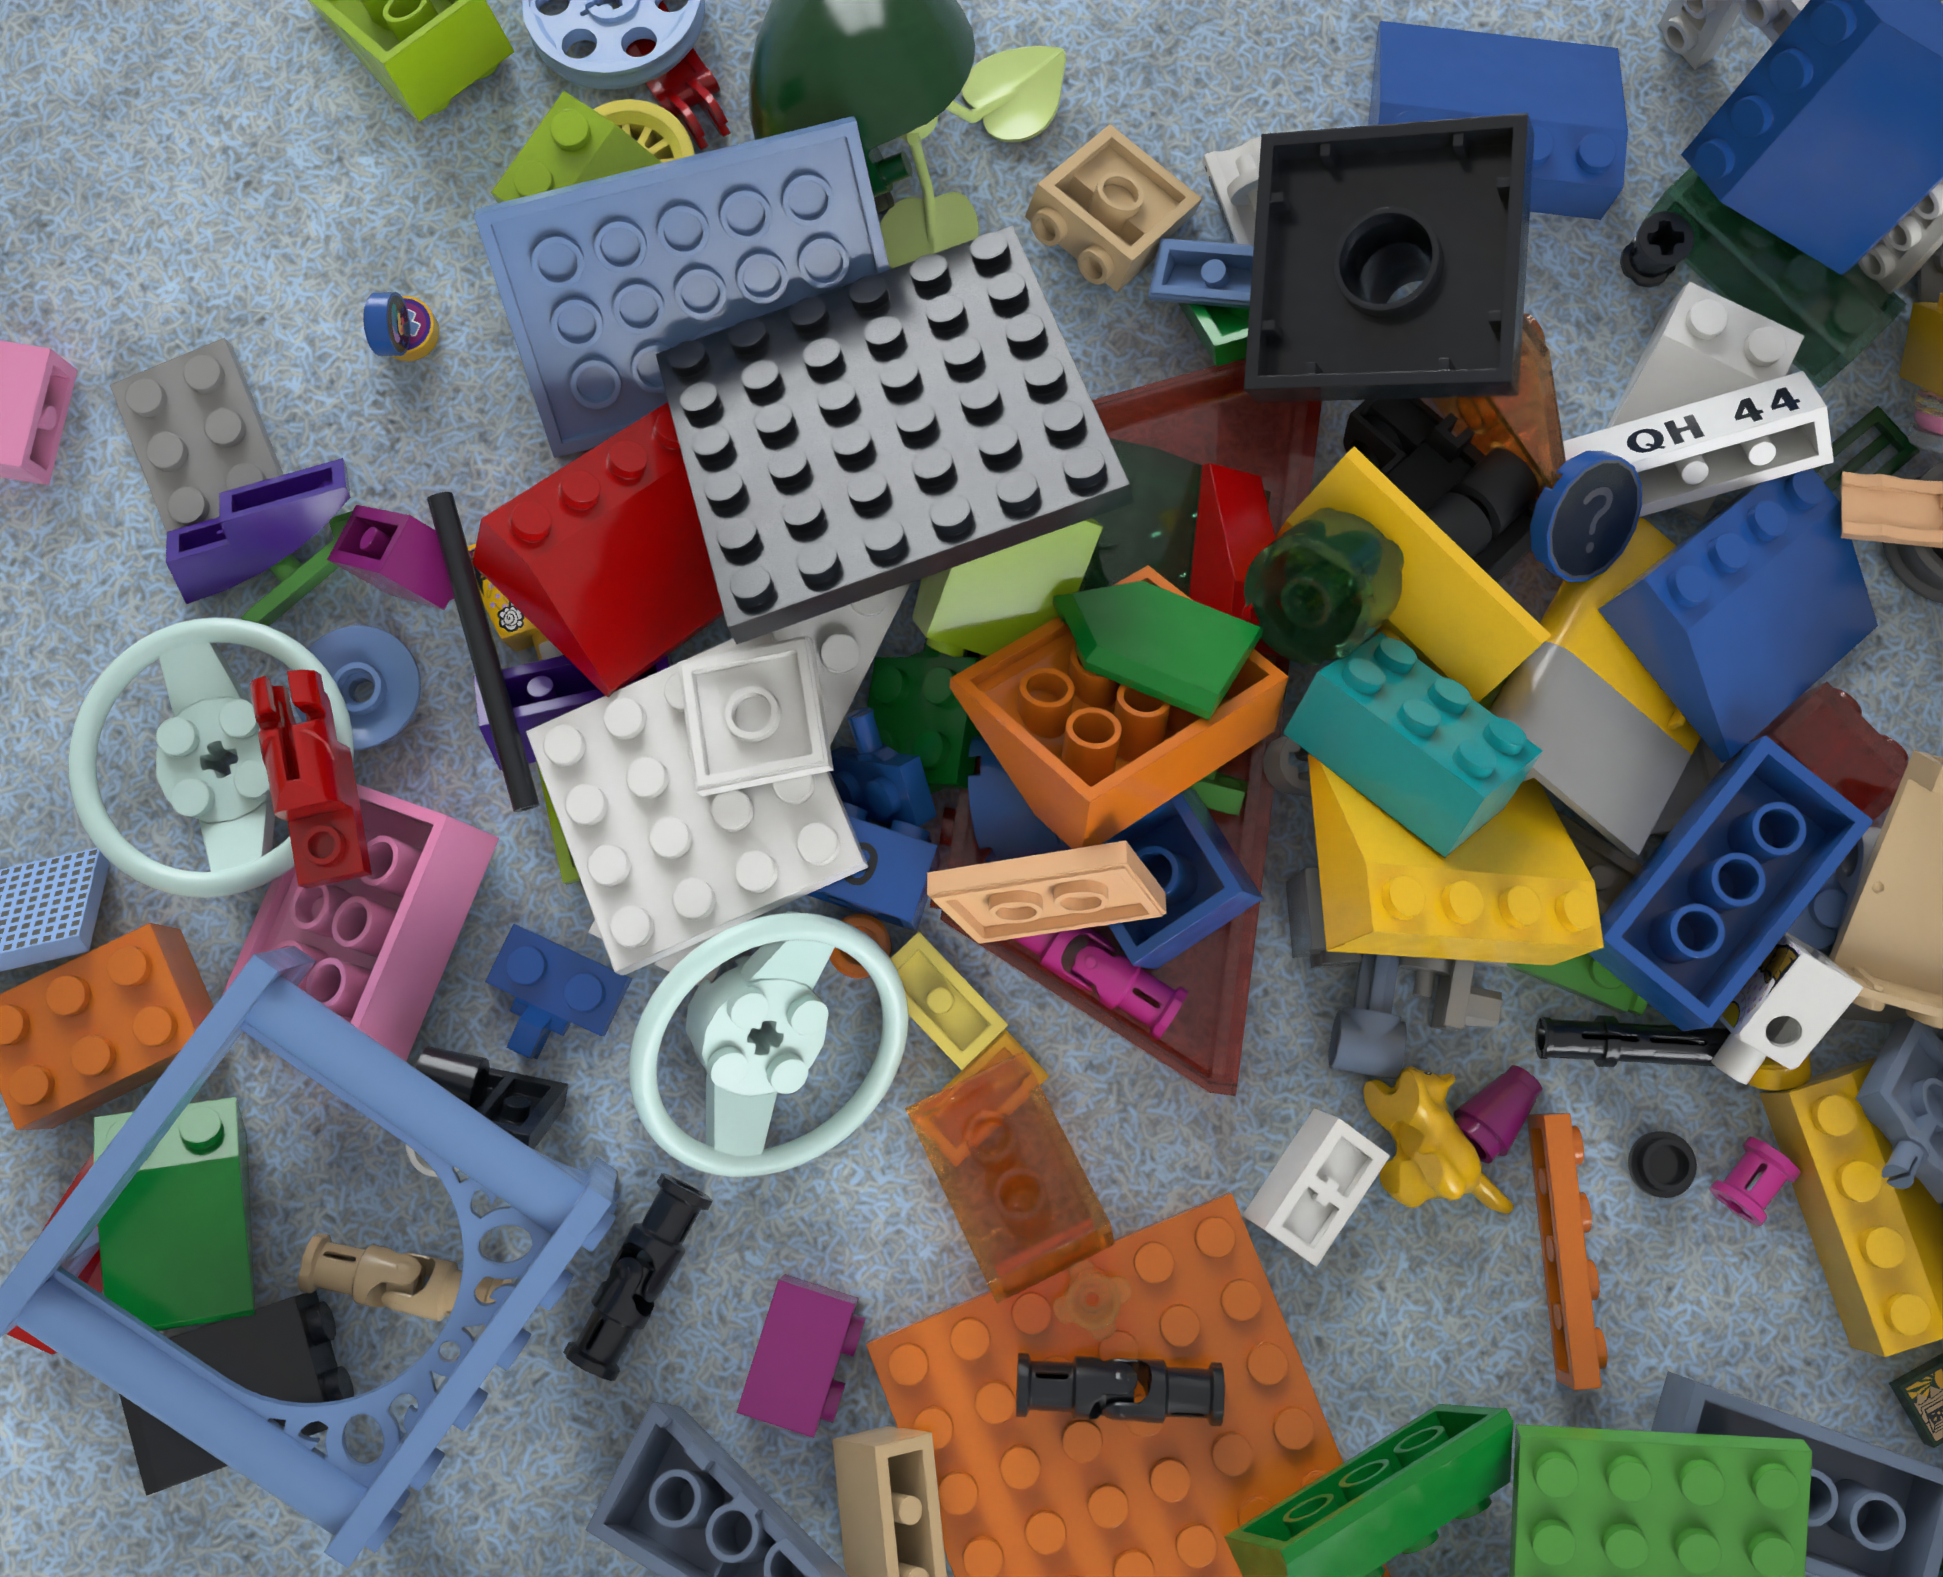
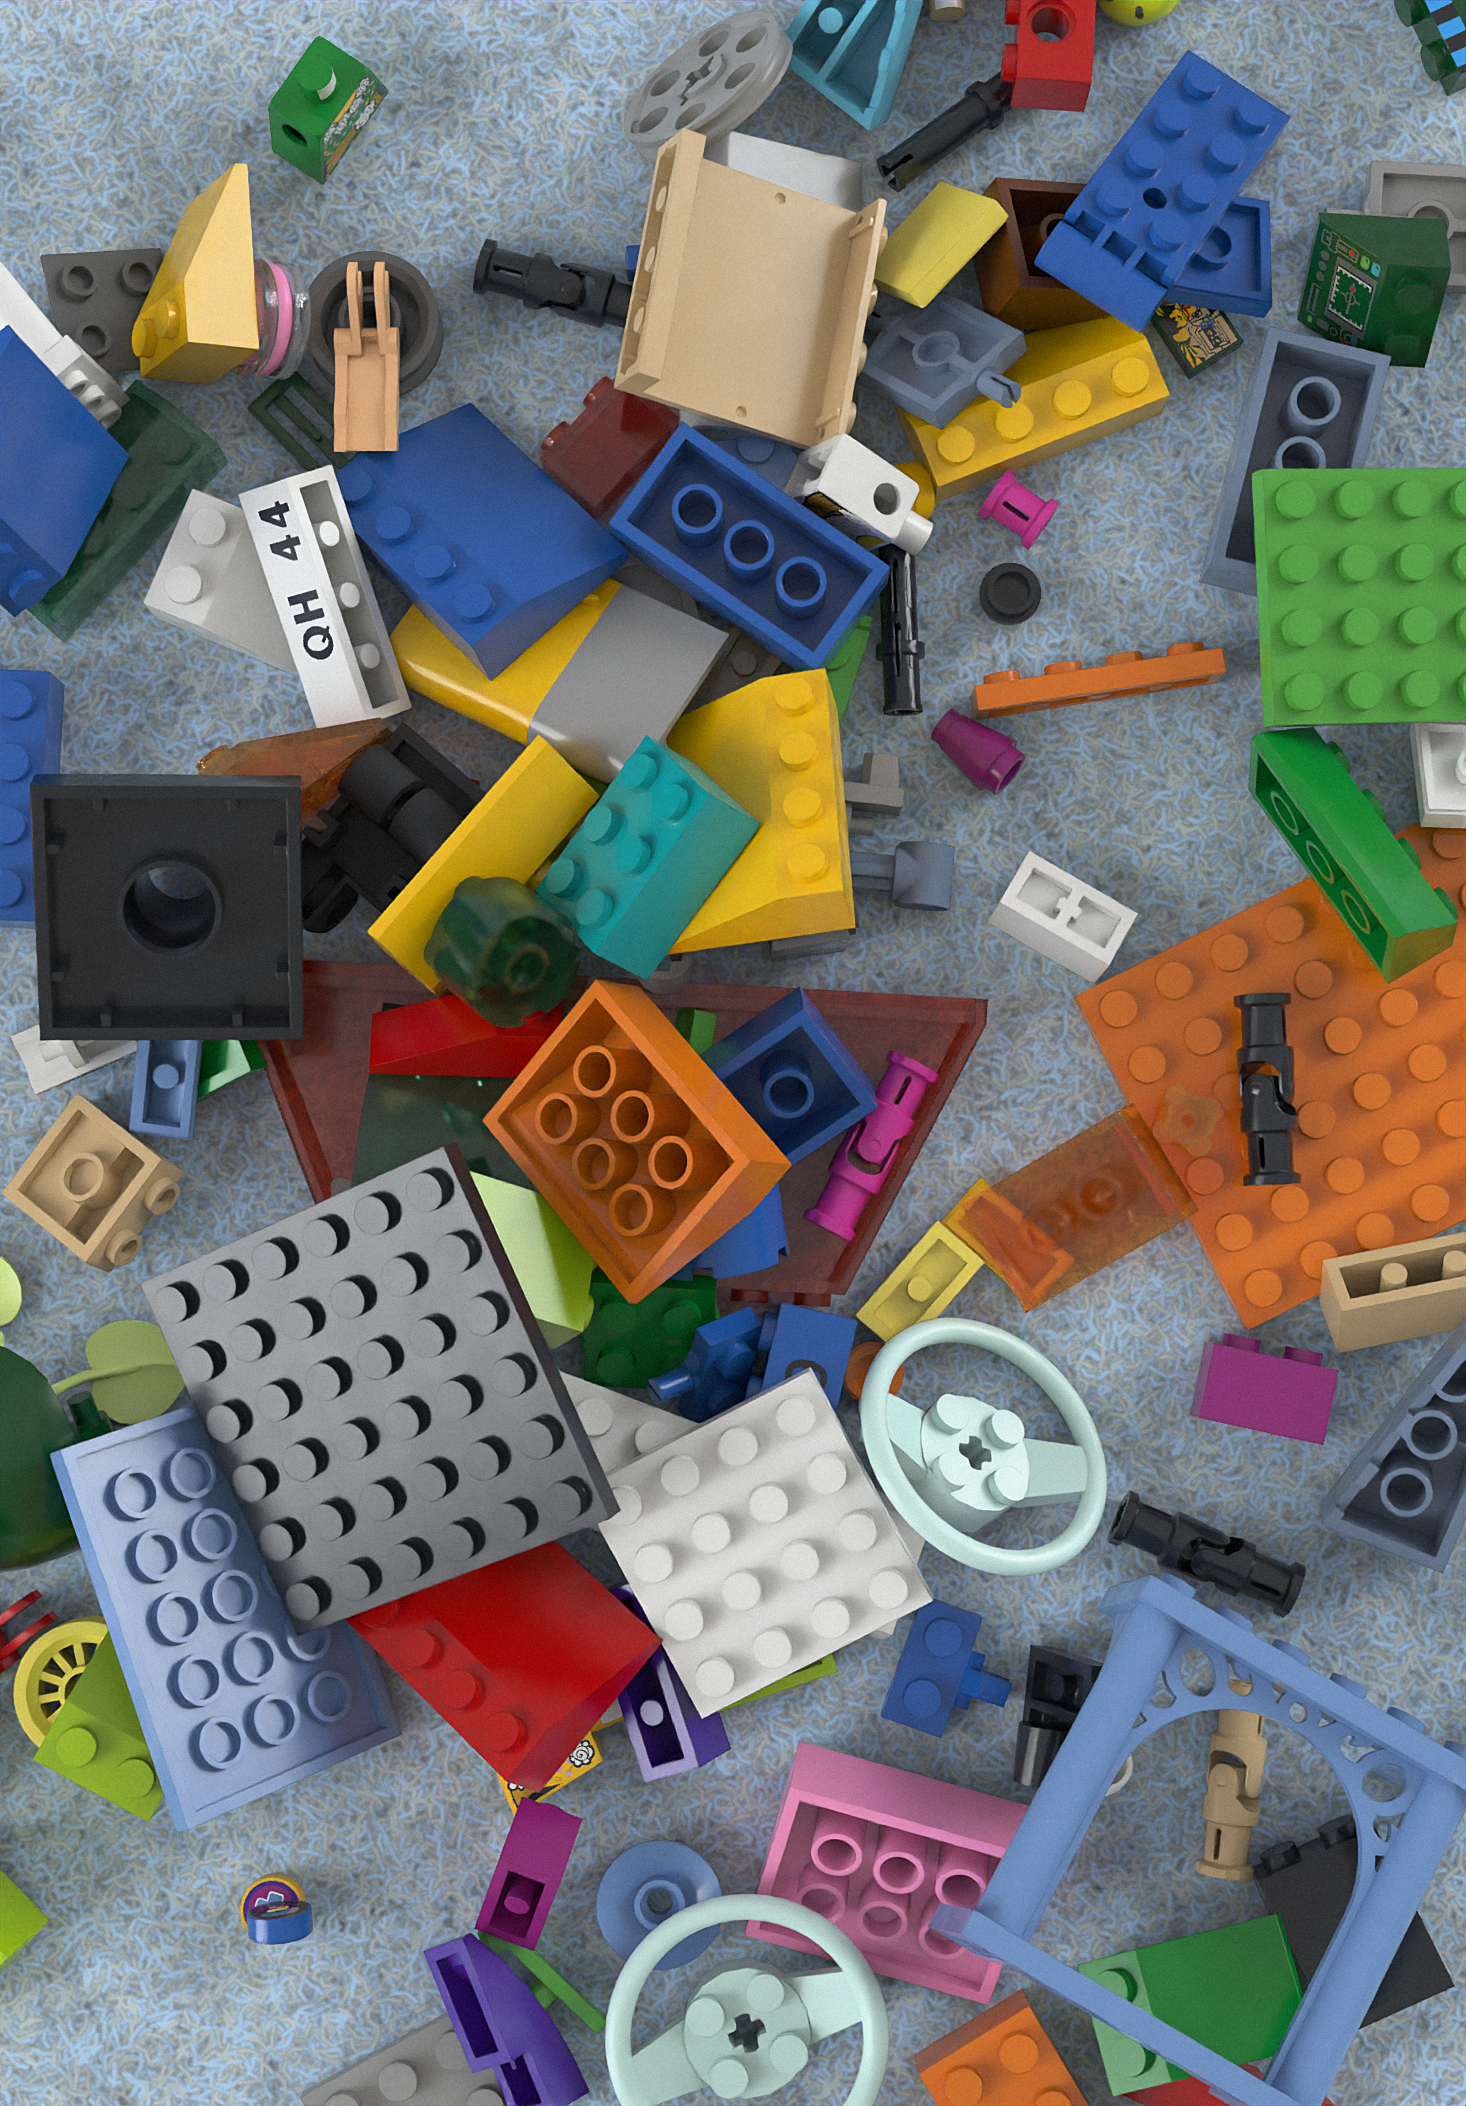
camera: 100 degrees left, 5 degrees up
(311, 780) = (770, 1924): red plate -> none
(483, 652) = (625, 1771): black piece -> none
(754, 716) = (677, 1490): white tile -> none
(1048, 892) = (822, 1192): light nougat tile -> none
(1158, 642) = (572, 1106): green tile -> none
(1431, 1150) = (1018, 811): yellow animal -> none
(1586, 516) = (404, 699): tile -> none
(1657, 248) = (85, 620): black bush -> none

